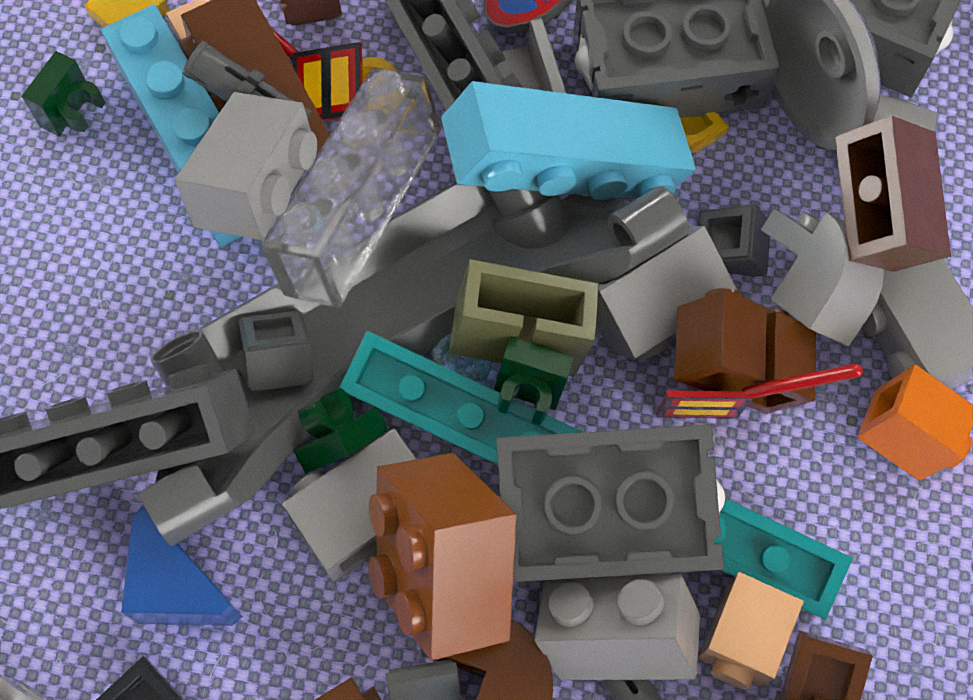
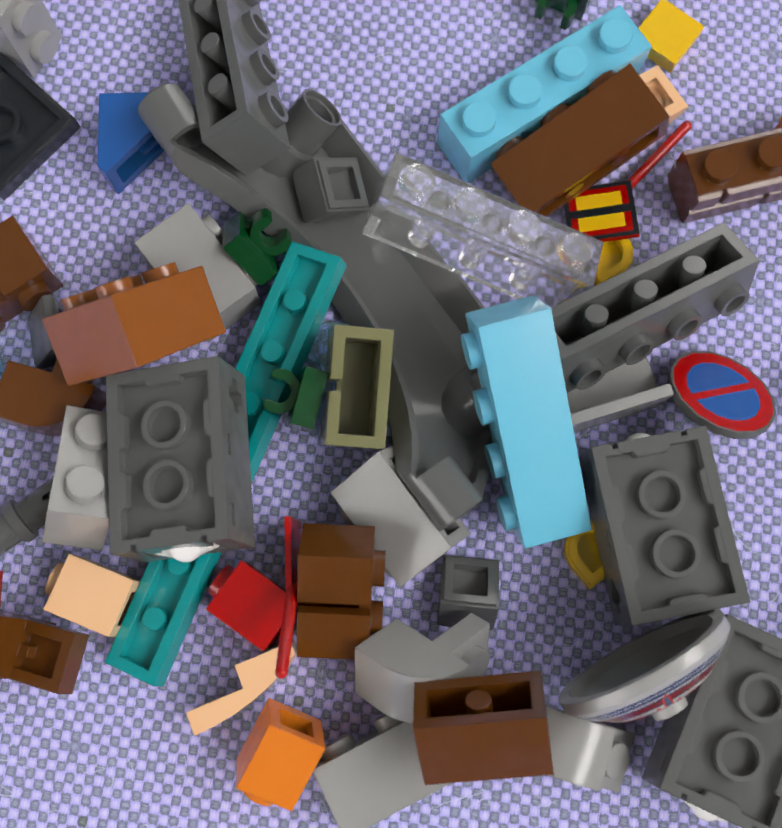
camera: 85 degrees right, 10 degrees up
(224, 76) = (571, 94): dark grey pin -> none
(247, 165) = (472, 132): light grey brick -> none
(758, 451) = (248, 603): none -> red brick
(834, 446) = (255, 677): none -> light nougat slope

